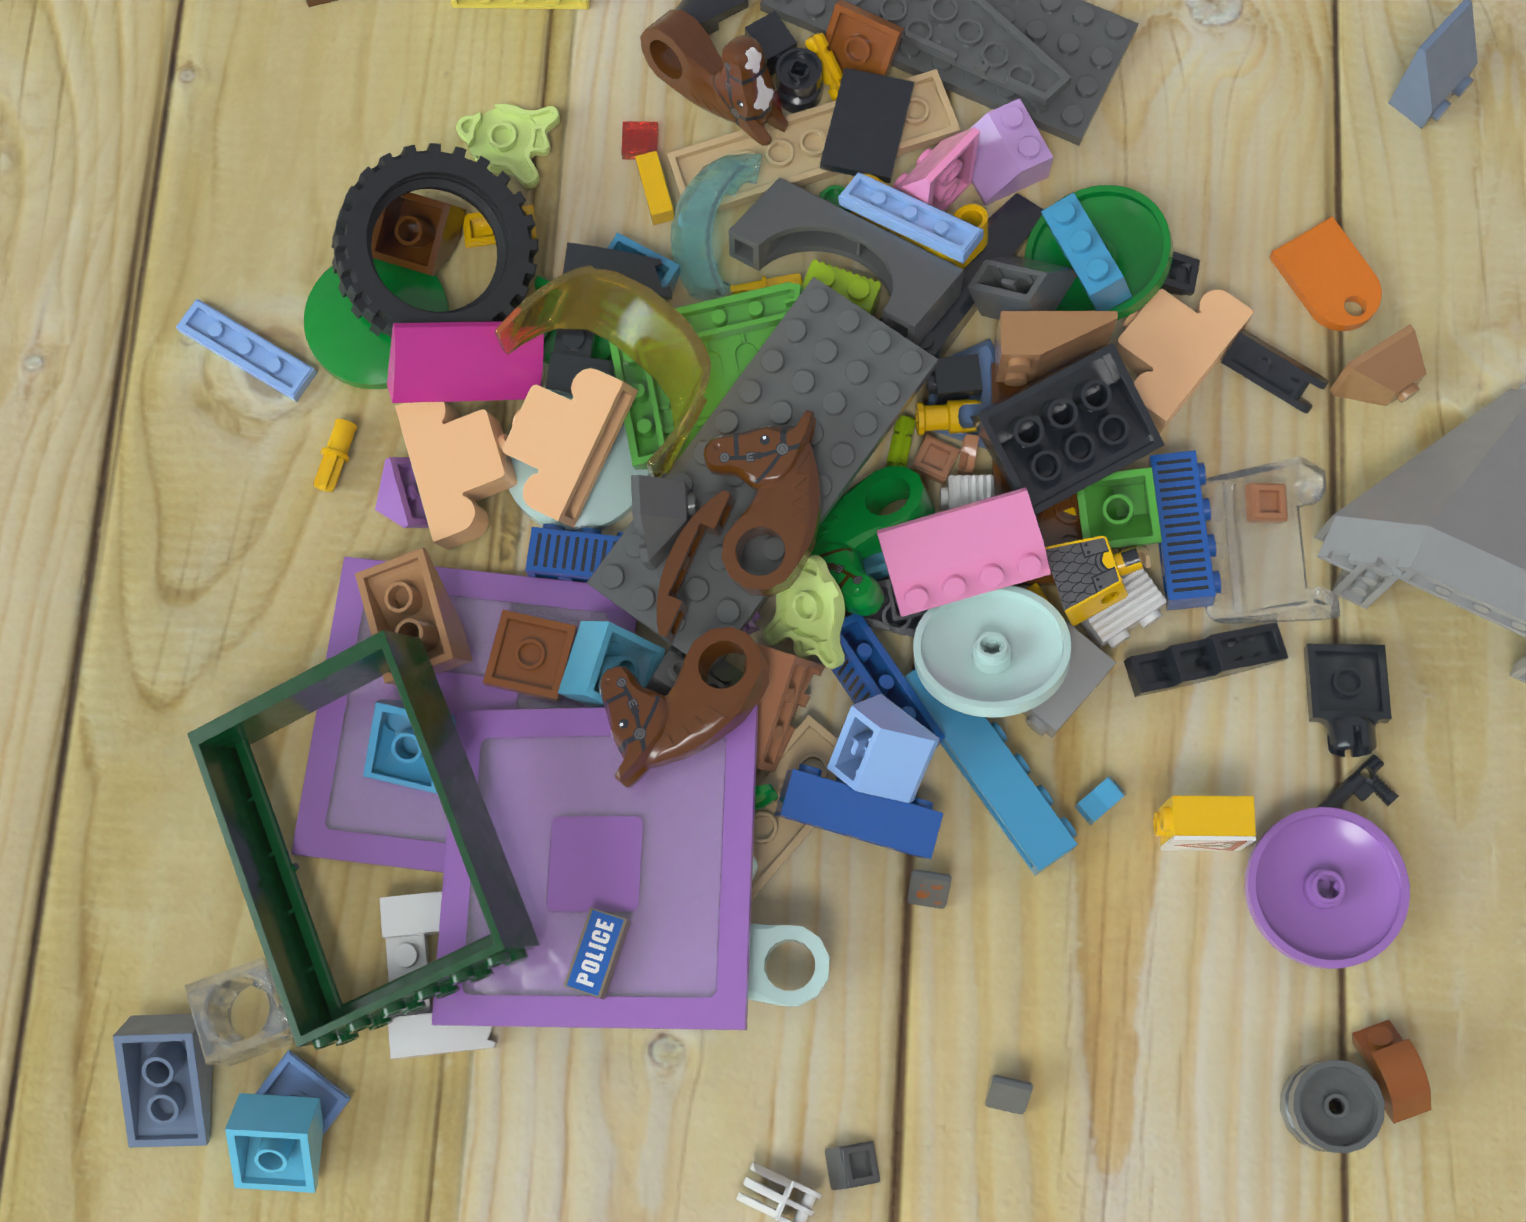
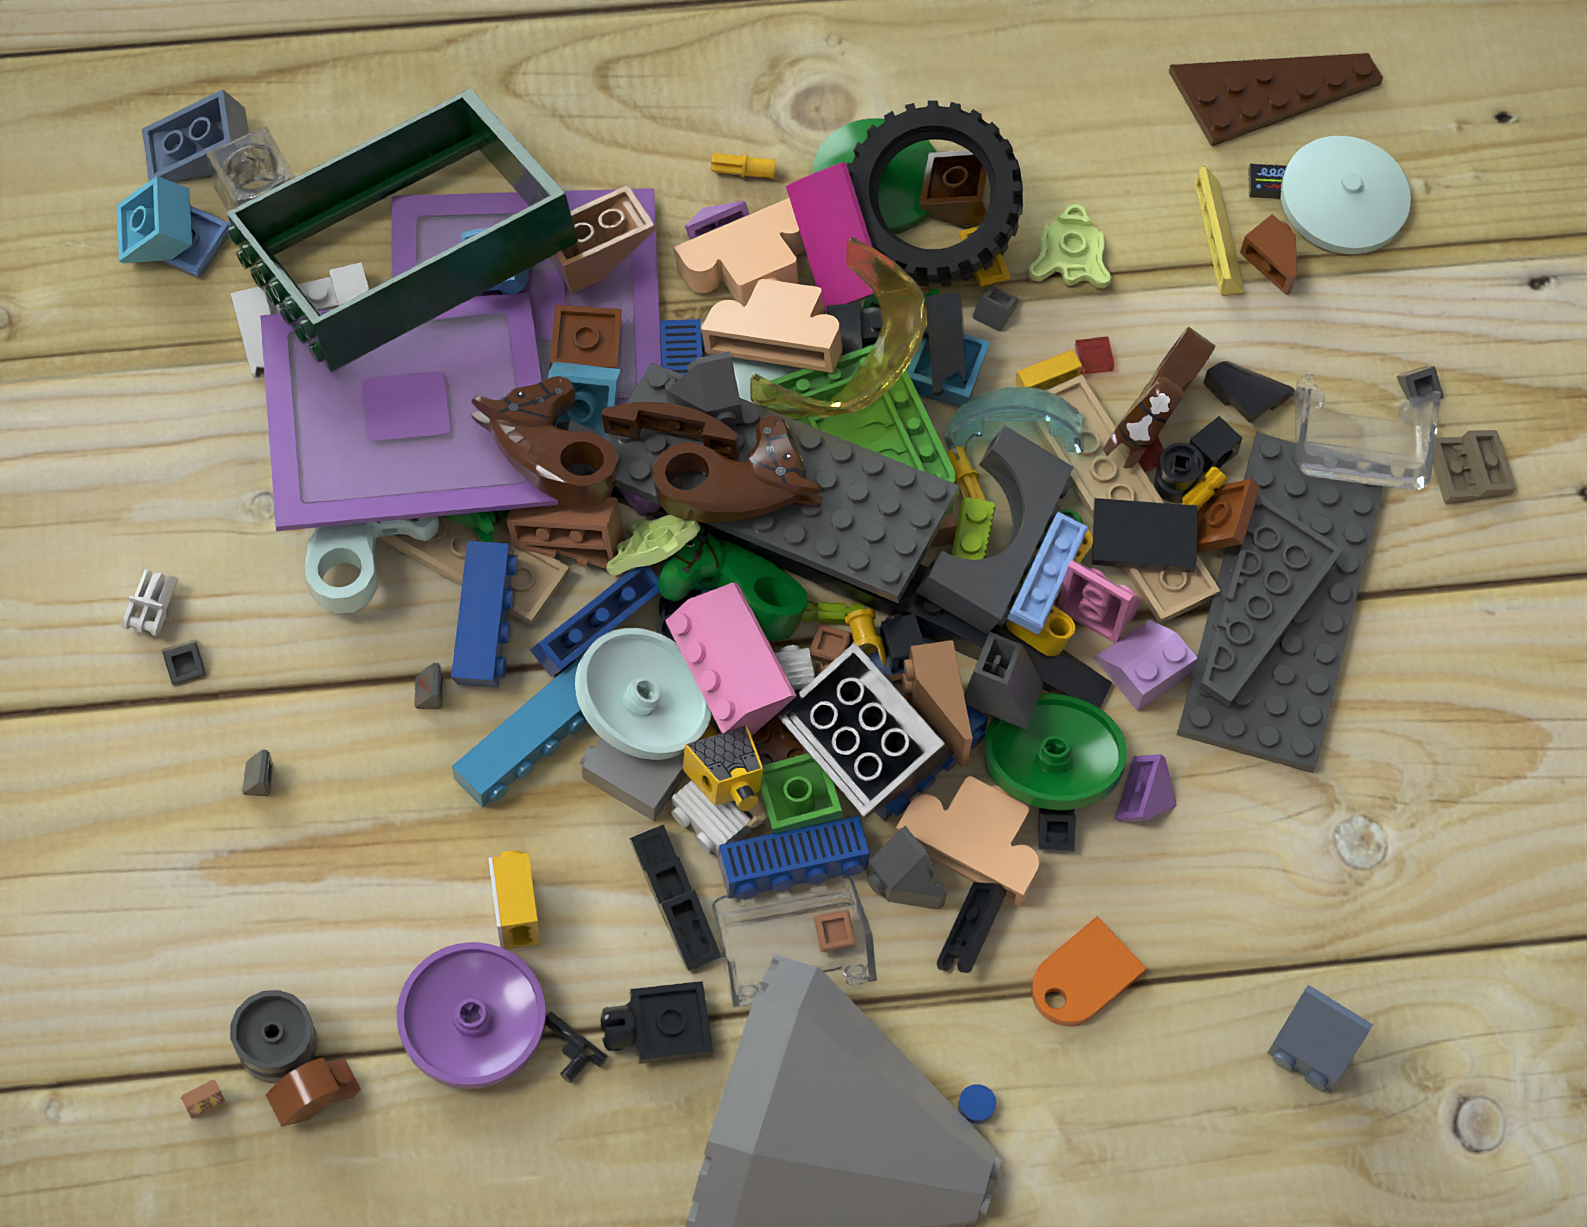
camera: 70 degrees right, 10 degrees down
(246, 350) = (828, 84): light blue tile -> none
(563, 226) = (995, 308): none -> dark grey slope
(597, 953) = (328, 415): tile -> none
(882, 750) = (535, 610): light blue slope -> none
(1086, 253) = (1019, 738): dark azure arch -> none
(1100, 800) = (529, 821): dark azure piece -> none
(1145, 177) = (1146, 790): none -> medium lavender slope
(1211, 422) = (904, 873): none -> dark grey slope
(1384, 372) = (988, 1021): medium nougat slope -> none
(1389, 1195) = (202, 1098): none -> nougat tile
(1455, 400) = (977, 1103): none -> blue tile

